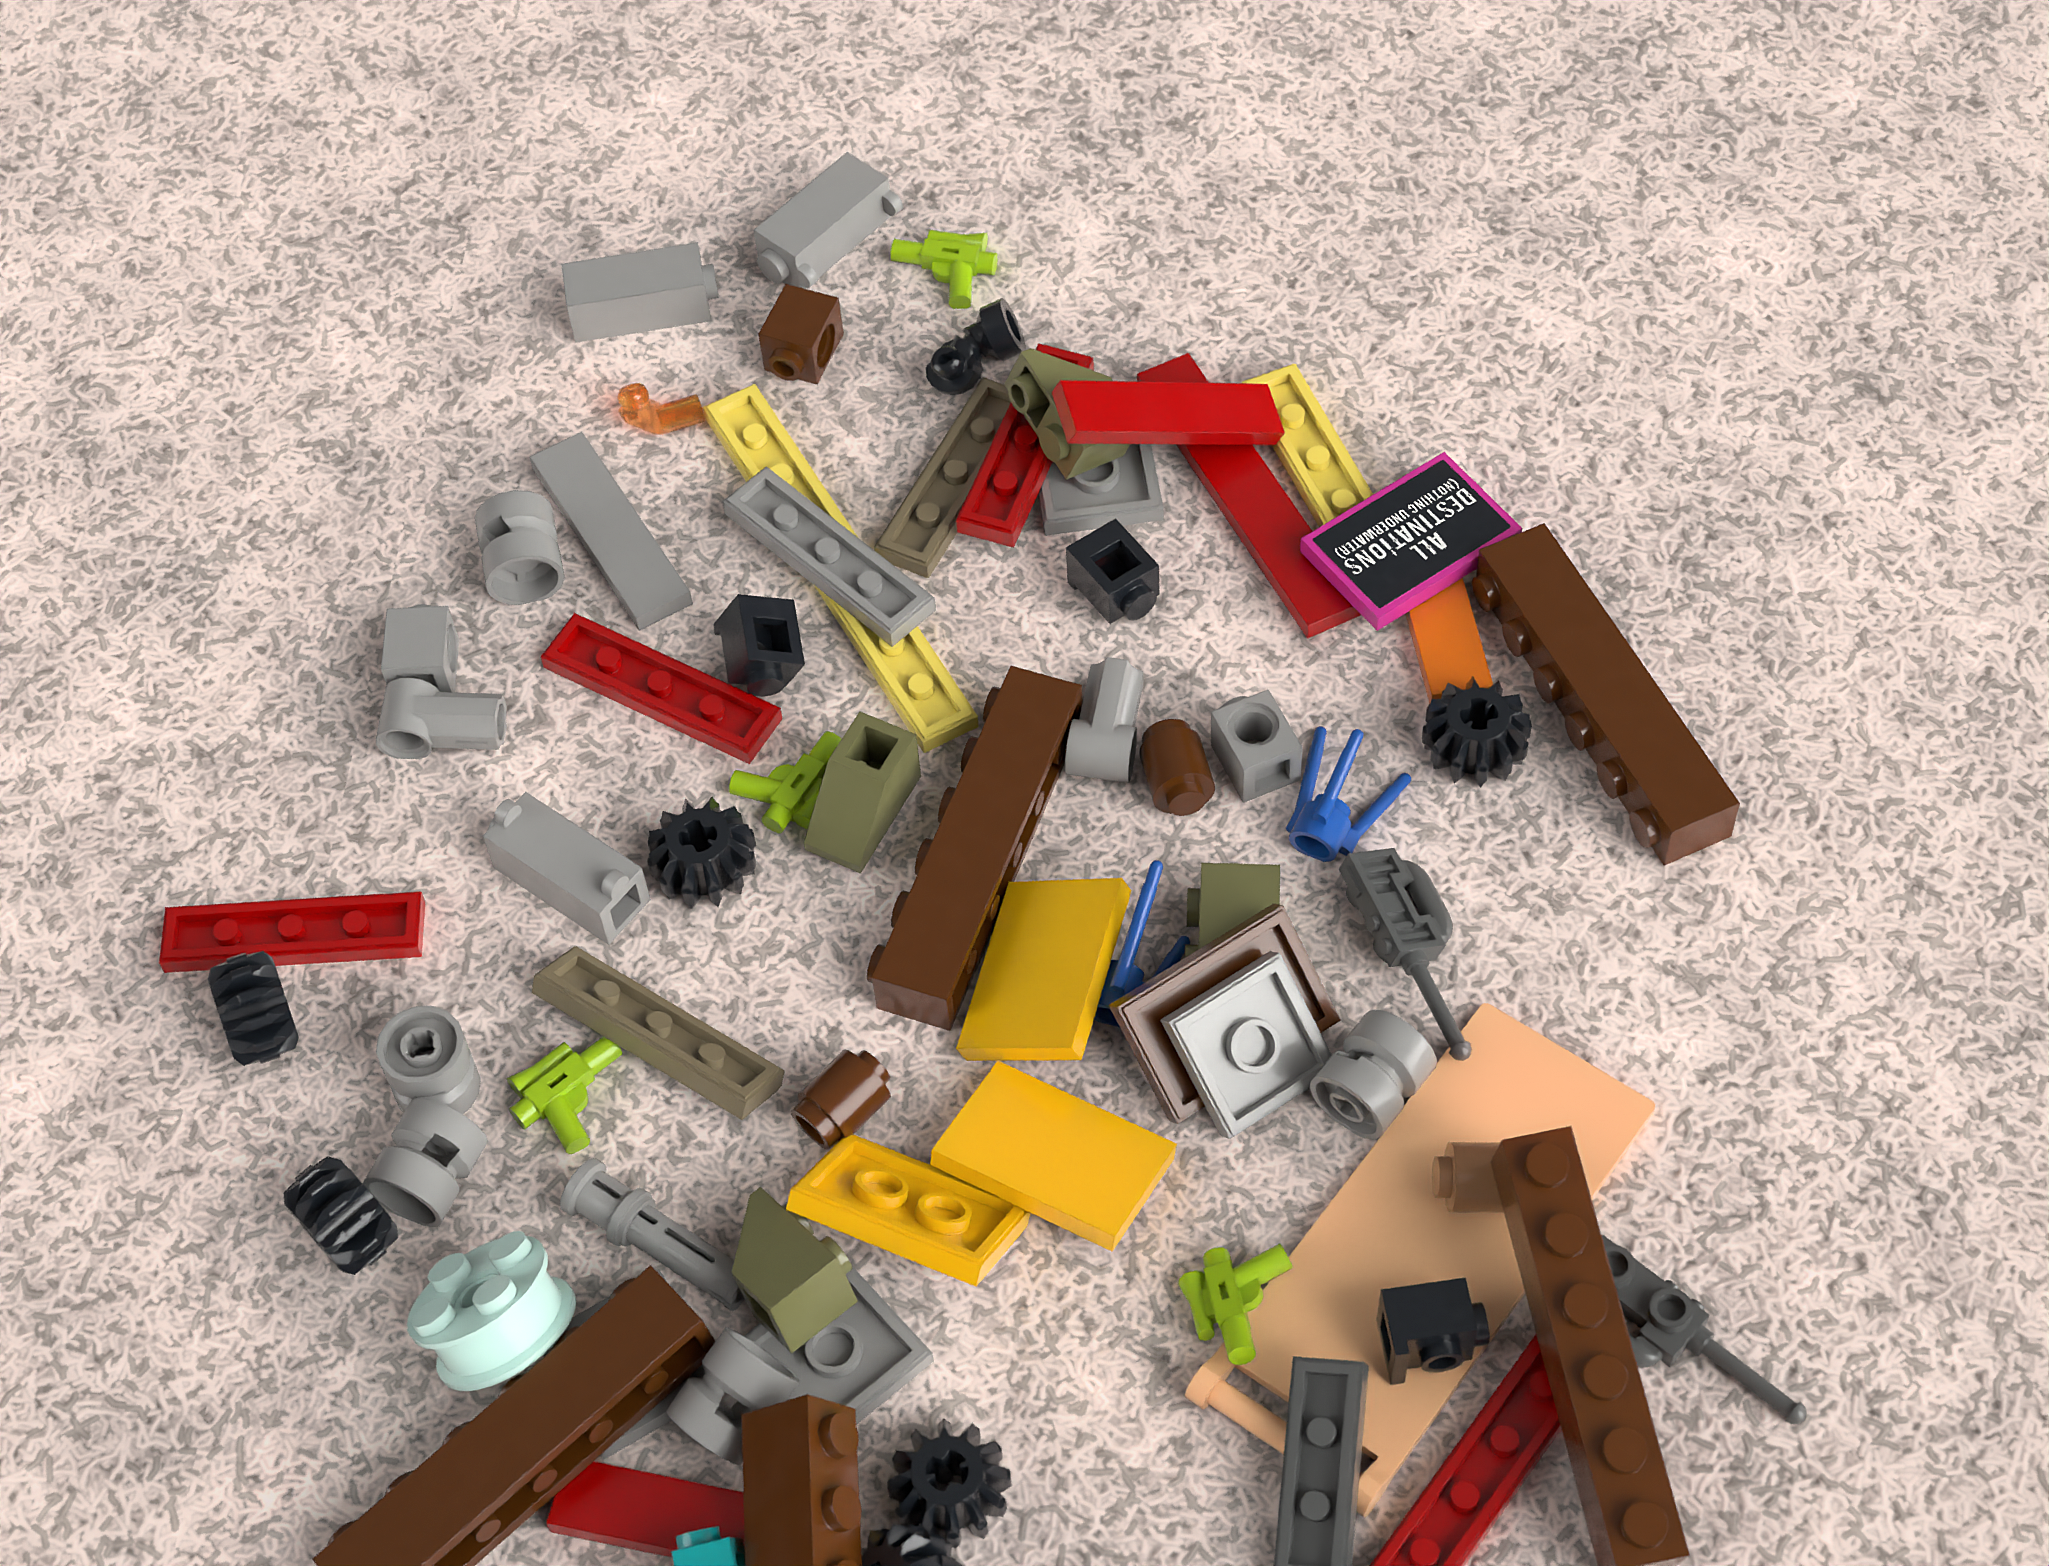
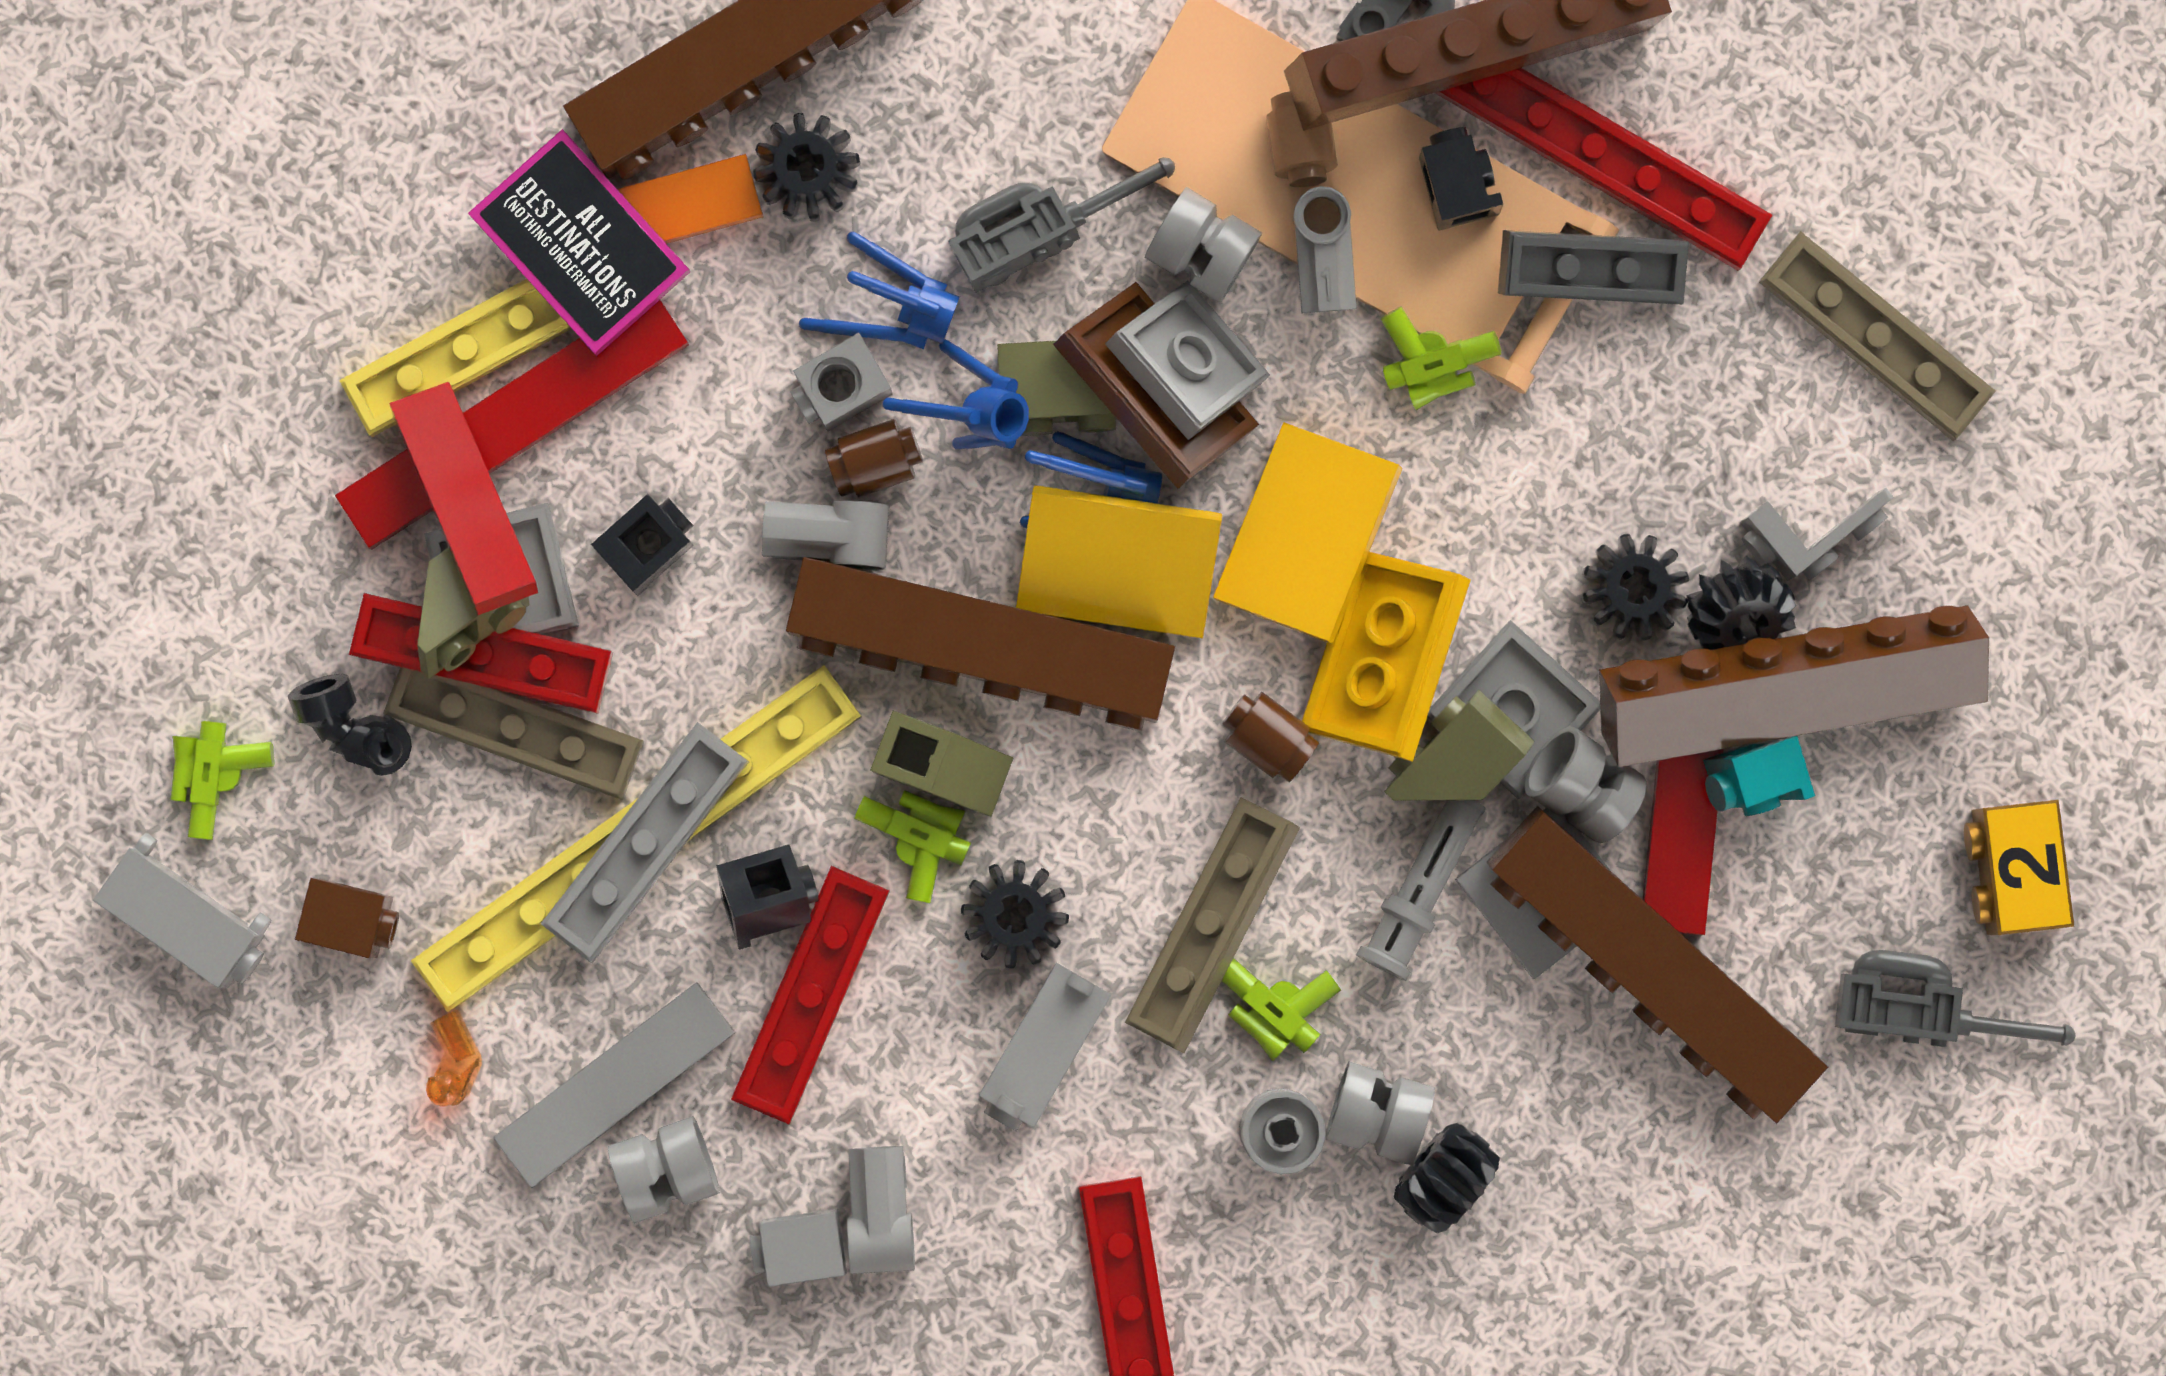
camera: 105 degrees left, 30 degrees up
(253, 1008) = (1240, 1314): black gear -> none
(491, 1311) = (1564, 1019): light aqua wheel -> none
(638, 292) = (294, 1108): light grey brick -> none
(1210, 839) = (992, 413): none -> blue plant
(1354, 1185) = (1325, 259): none -> light grey piece

